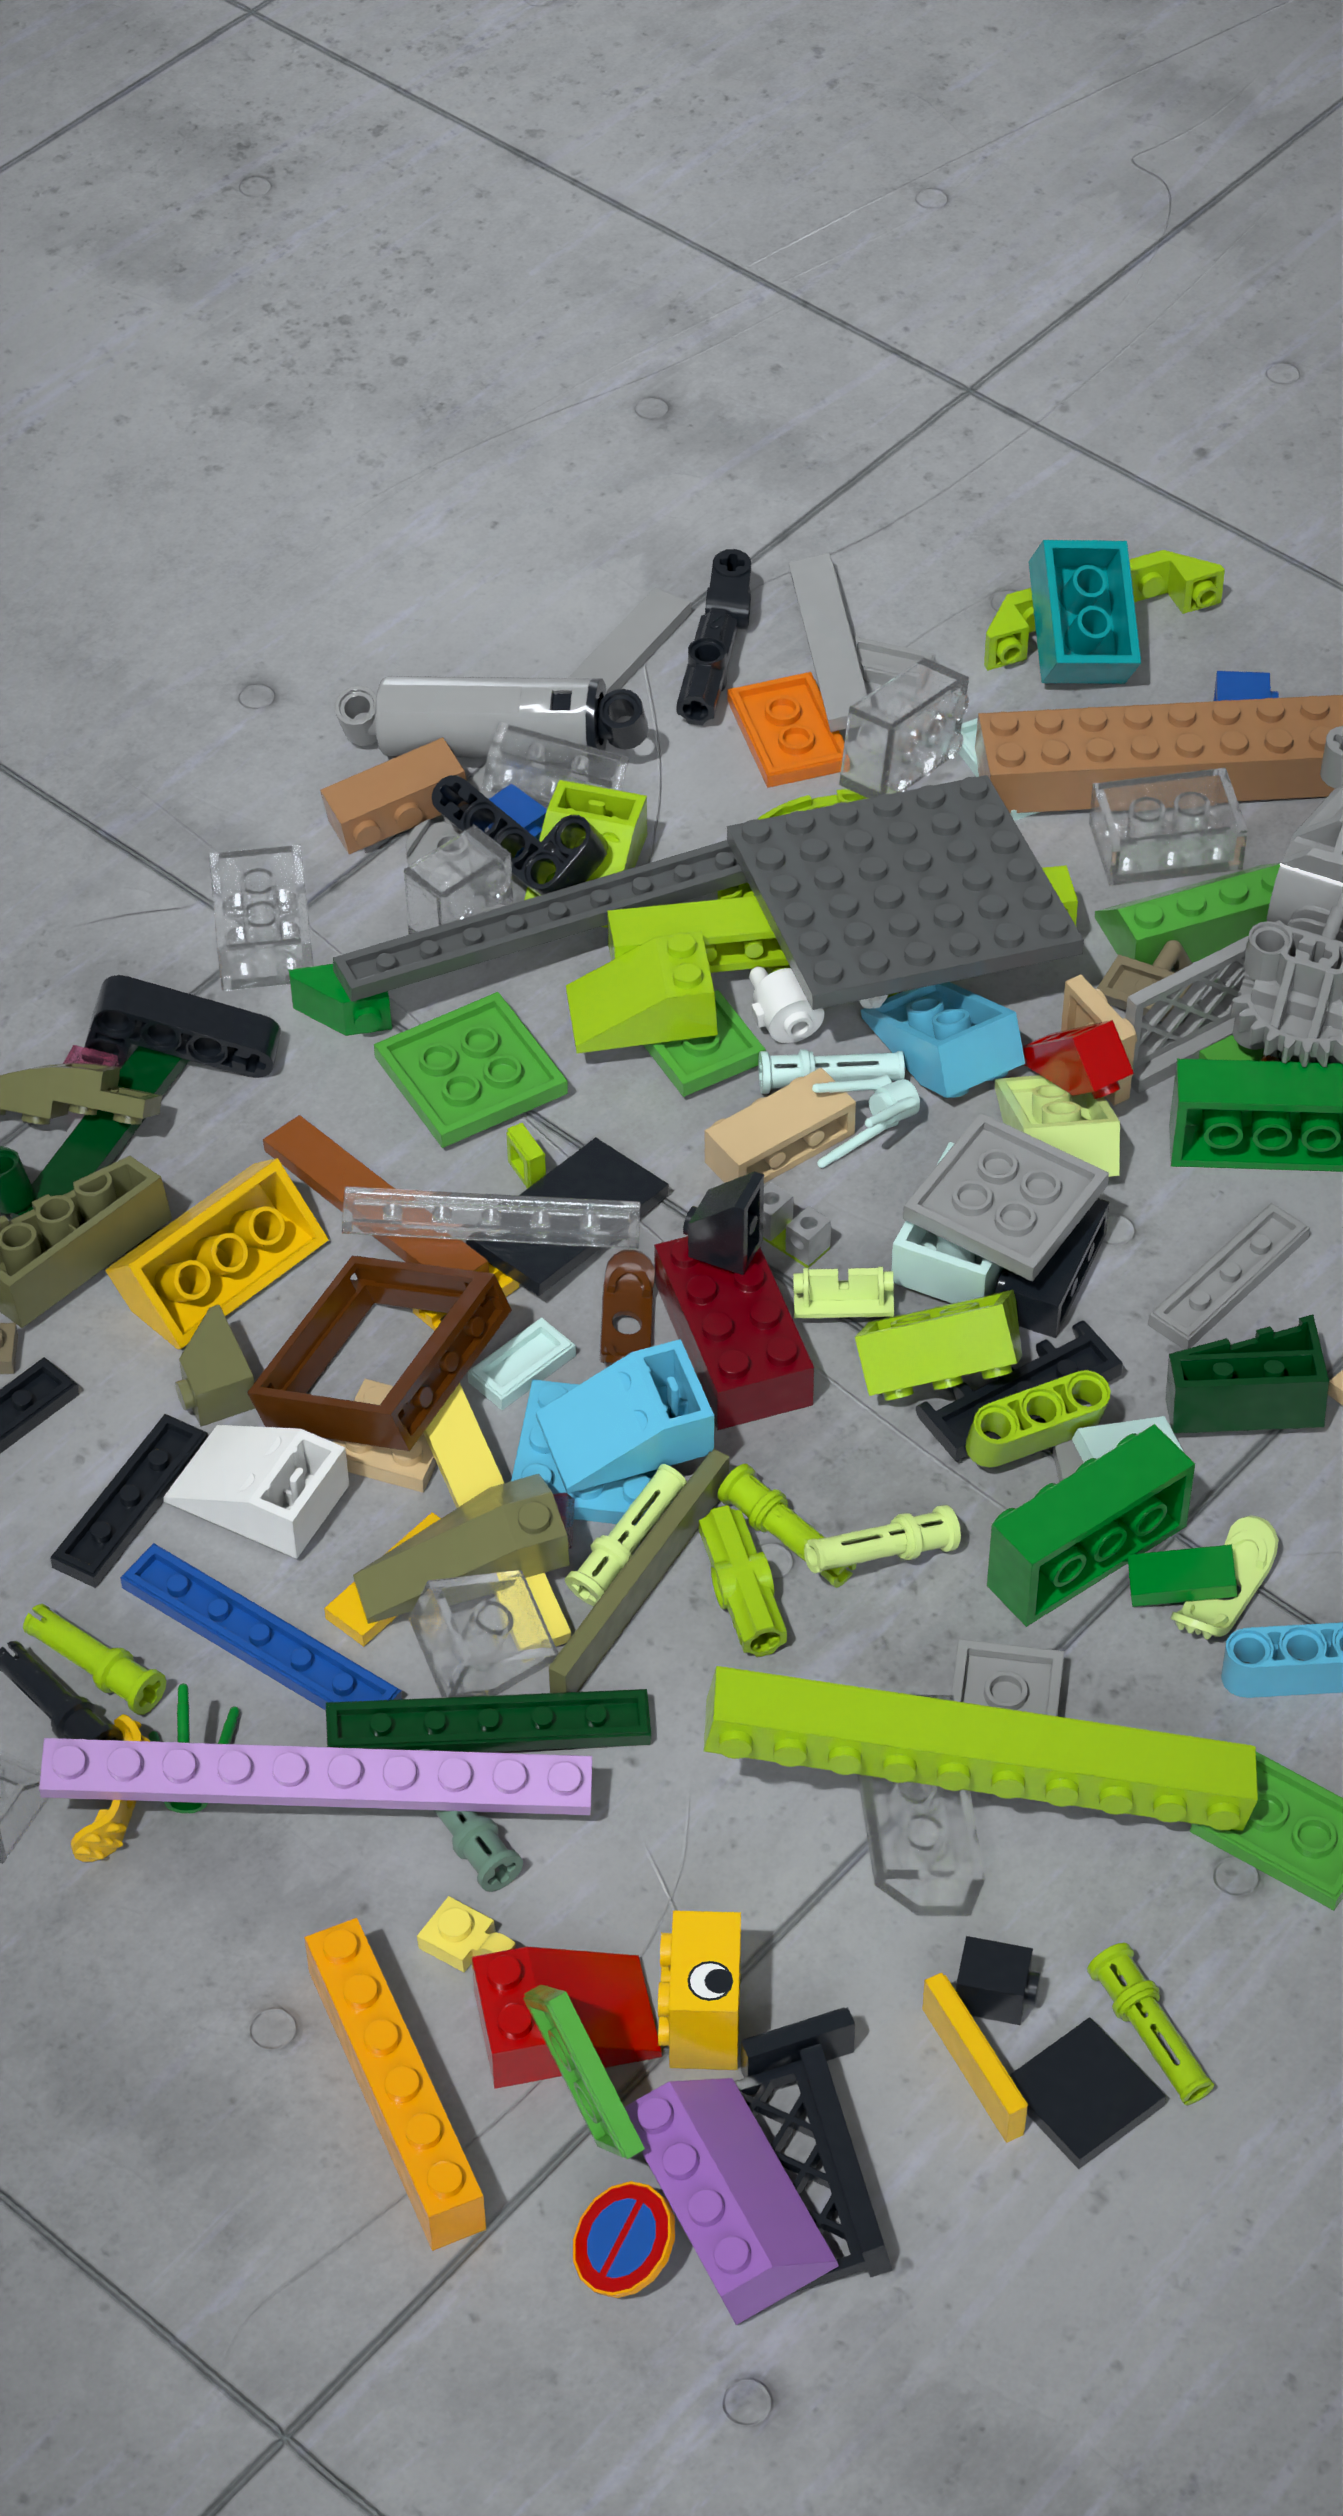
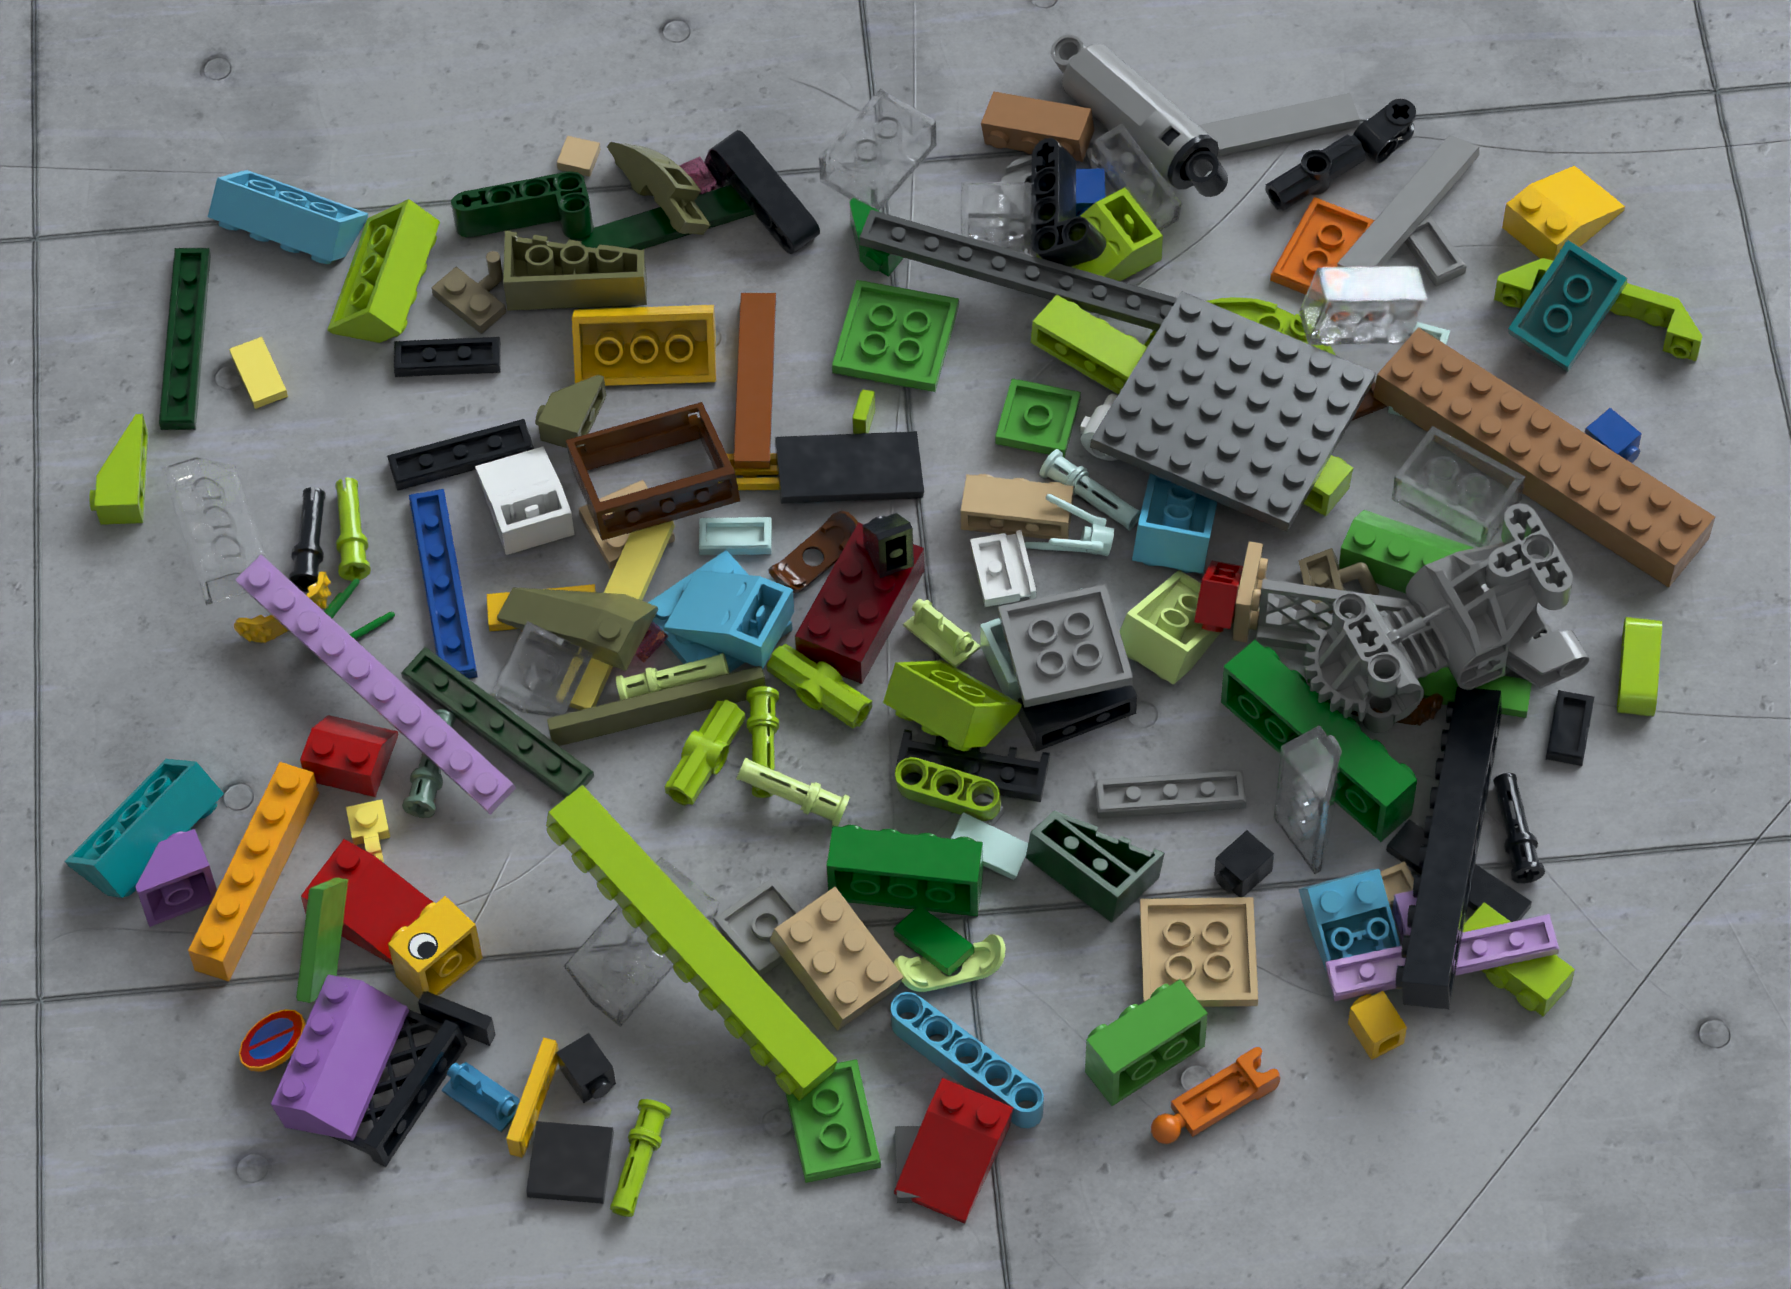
camera: 45 degrees right, 10 degrees up
(206, 2141) = (161, 805): none -> teal slope
(325, 2149) = (176, 879): none -> medium lavender slope
(361, 1876) = (348, 754): none -> red slope
(491, 1217) = (796, 437): clear tile -> none
(645, 996) = (1027, 367): lime slope -> none
(787, 1431) = (819, 686): none -> lime piece
(797, 1236) = (959, 568): flat silver piece -> none
(836, 1192) = (1002, 568): none -> white plate
(915, 2105) = (481, 1095): none -> dark azure hinge
(966, 565) = (1559, 210): none -> yellow slope
(1123, 1659) = (836, 958): none -> tan brick

